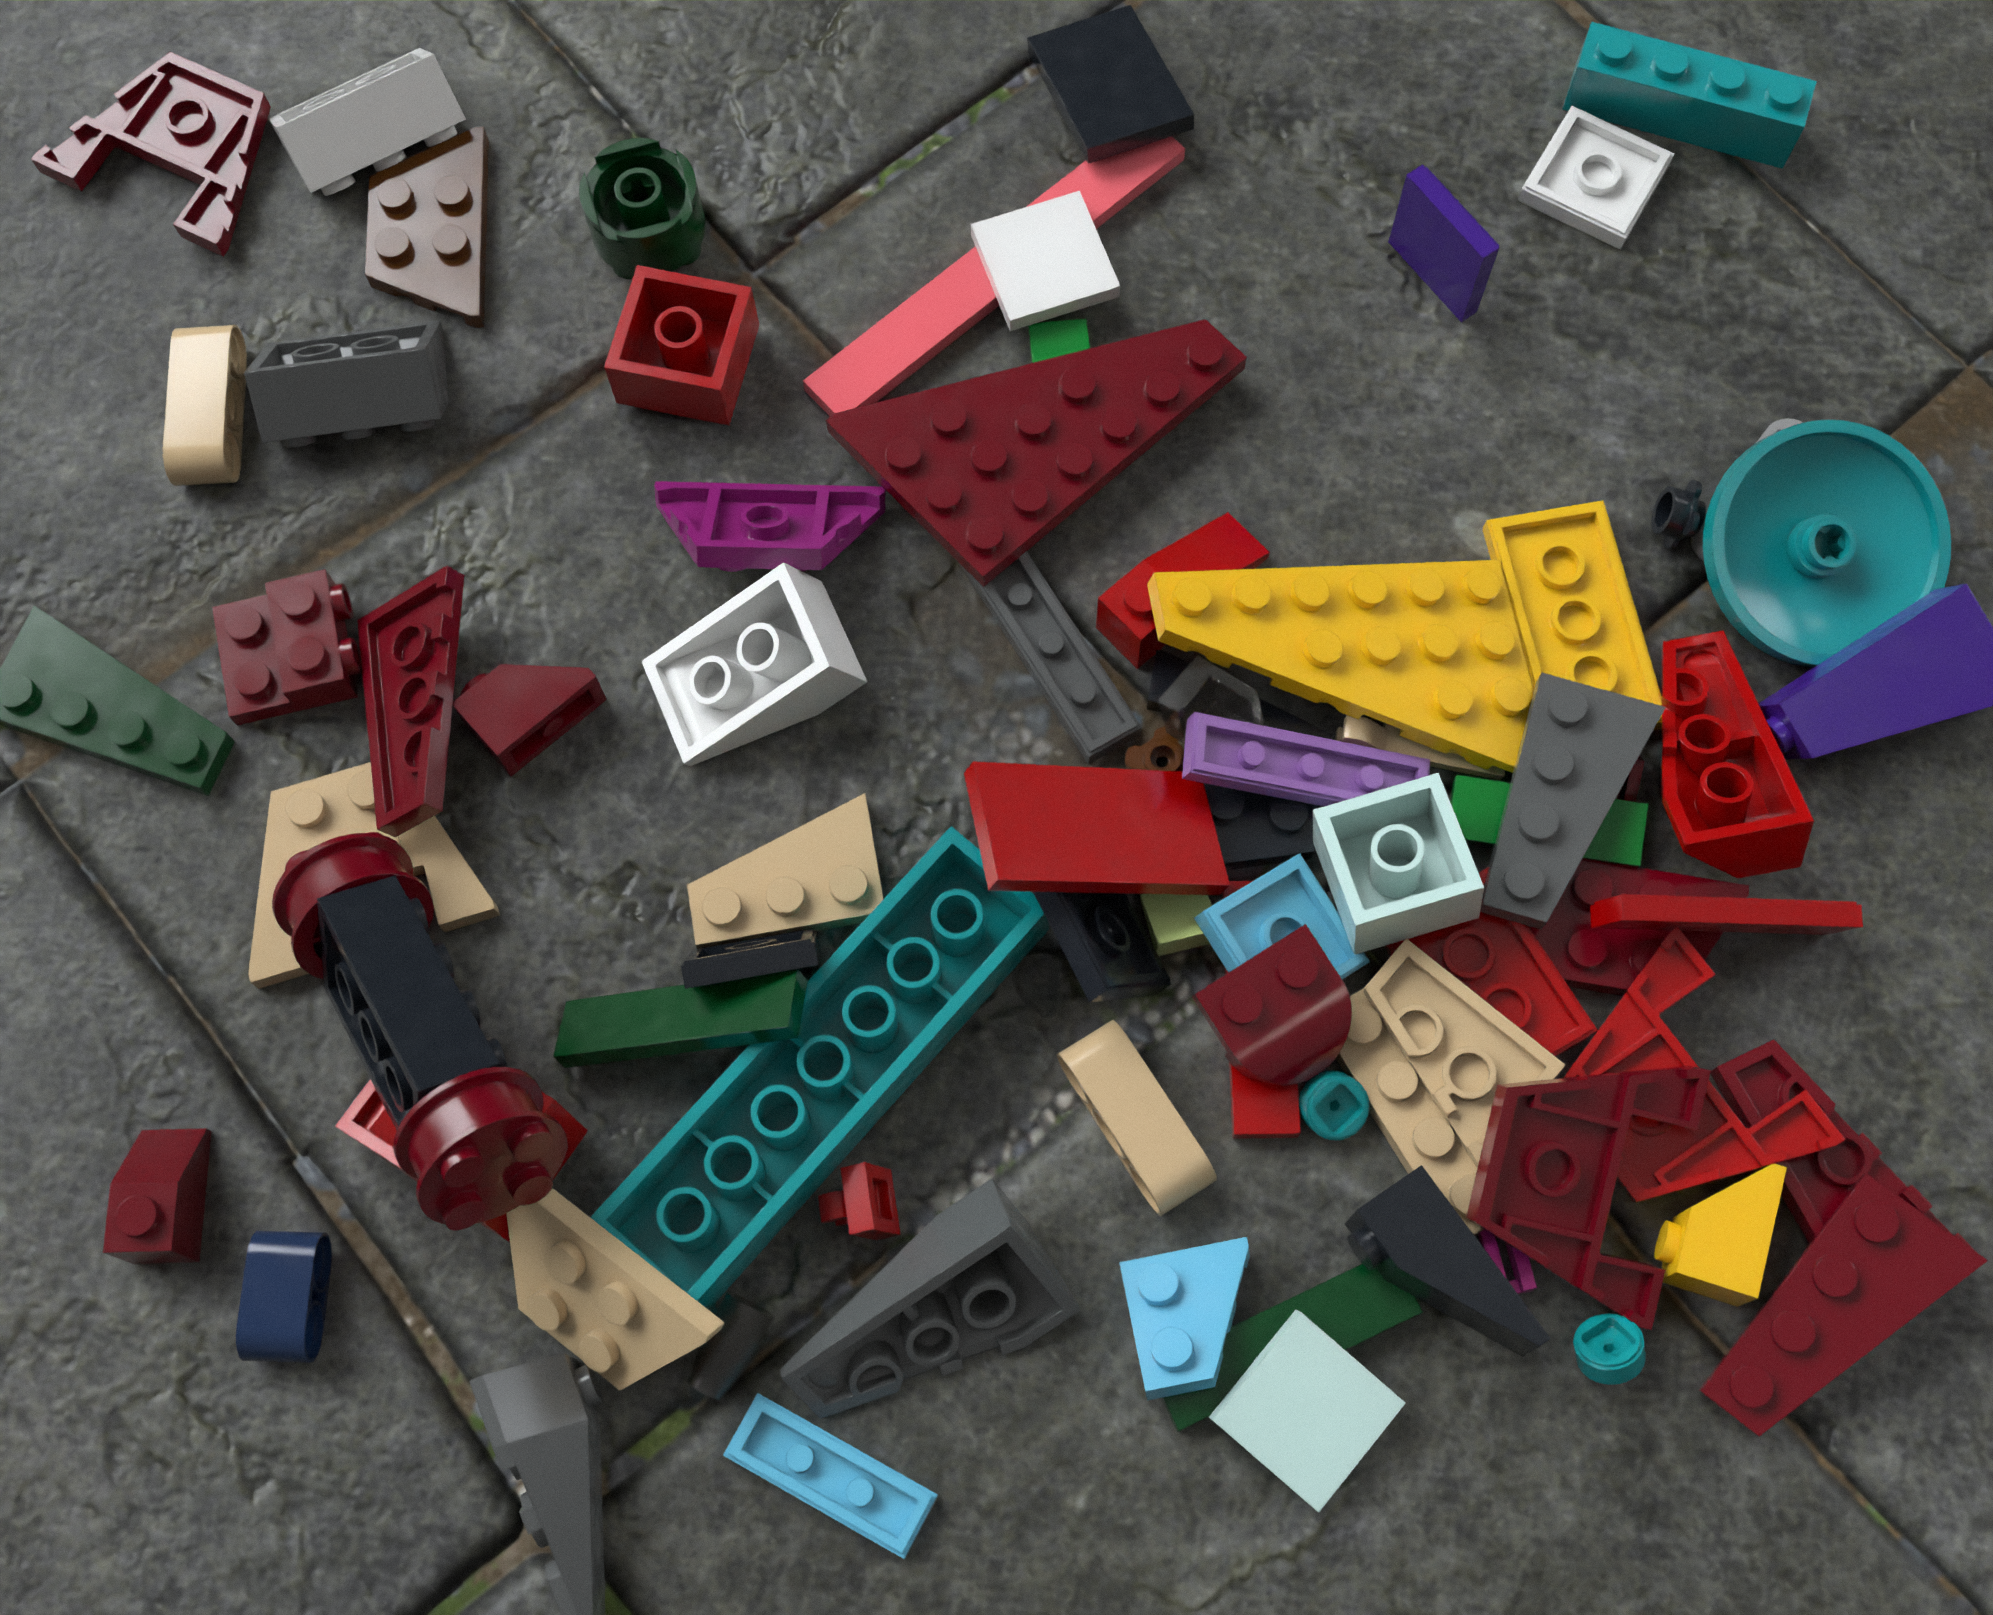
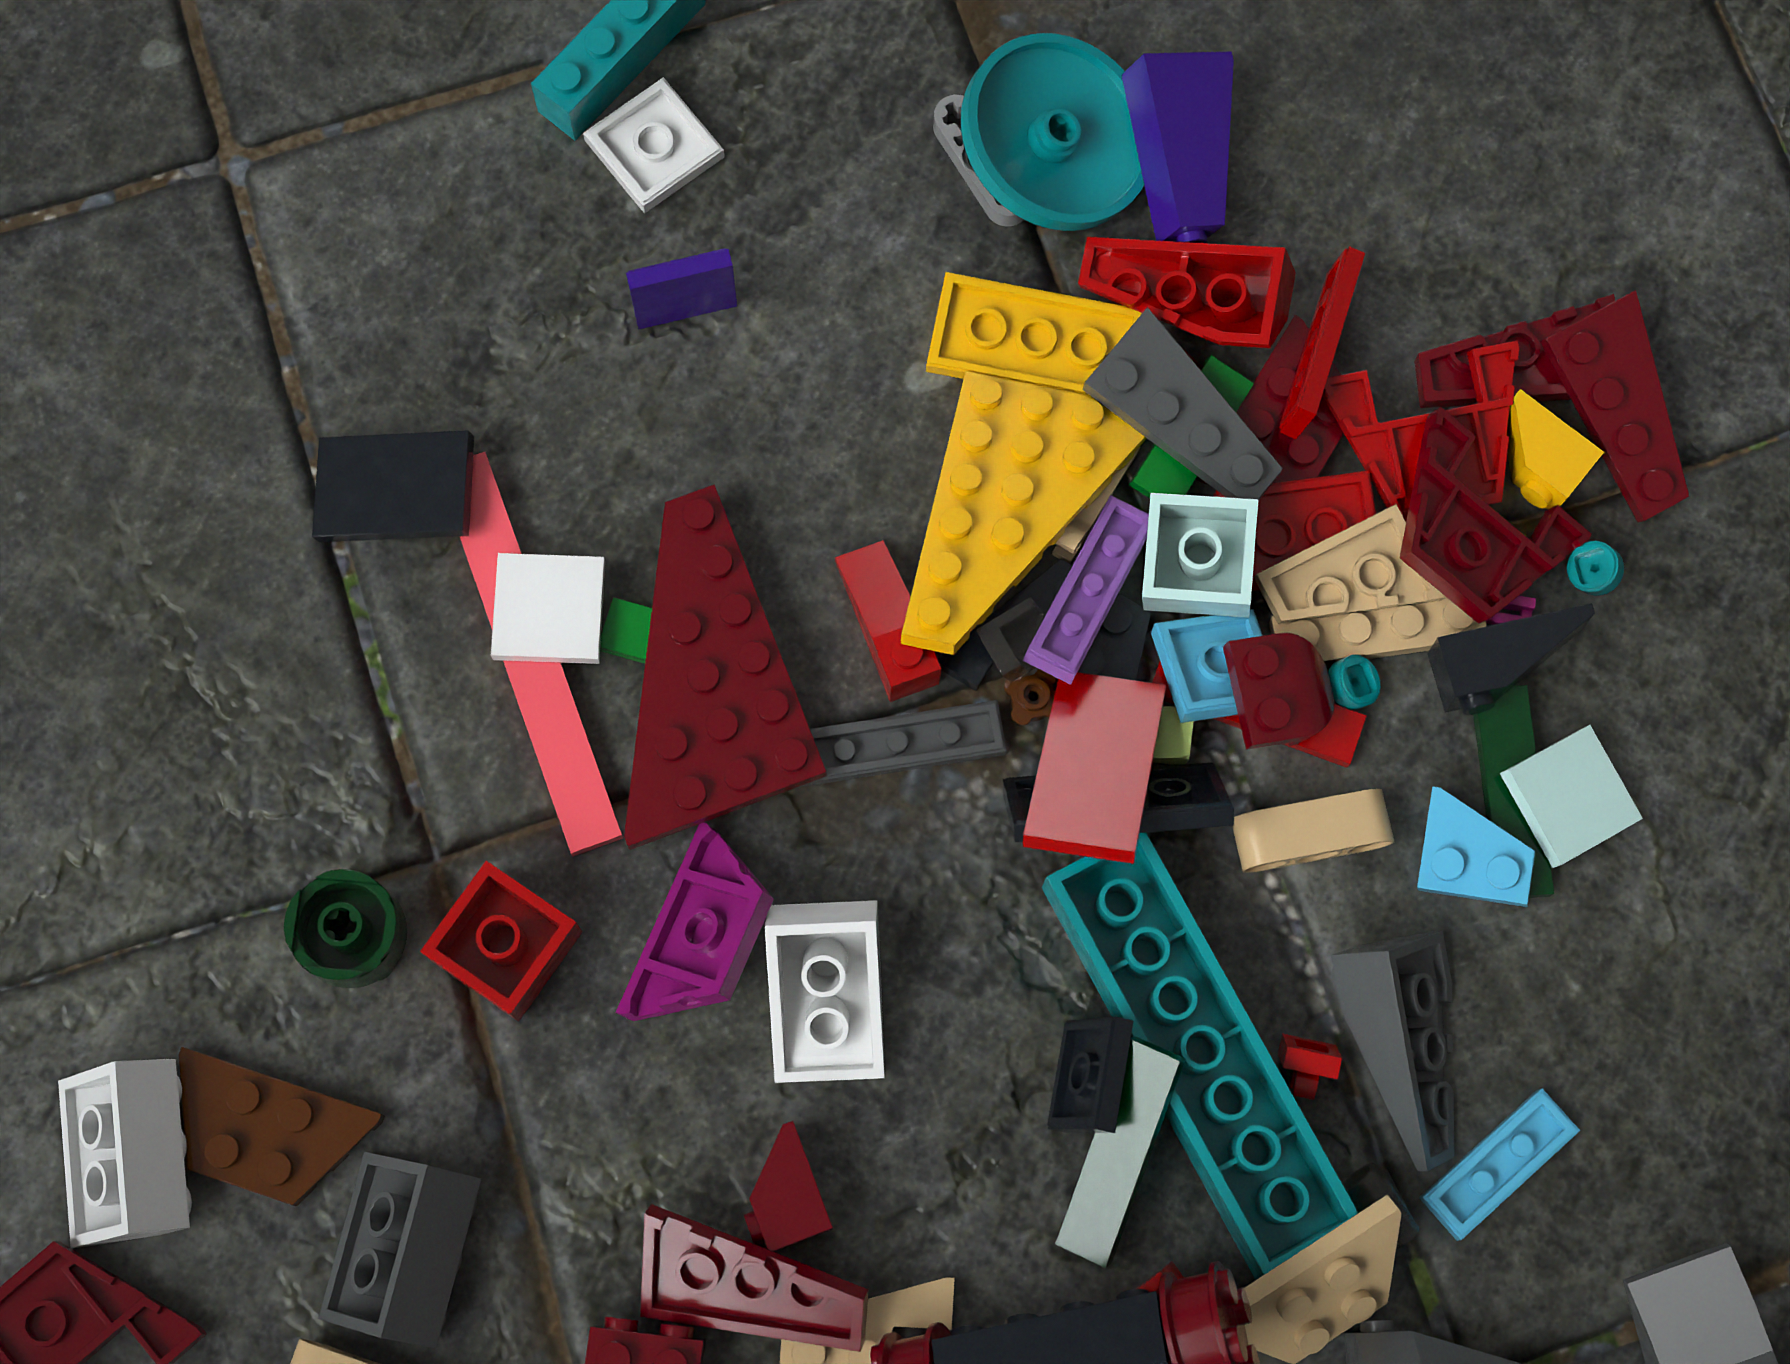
camera: 75 degrees left, 5 degrees up
(803, 880) = (1023, 1022): tan wing -> none
(1678, 513) = (982, 223): black plate -> none

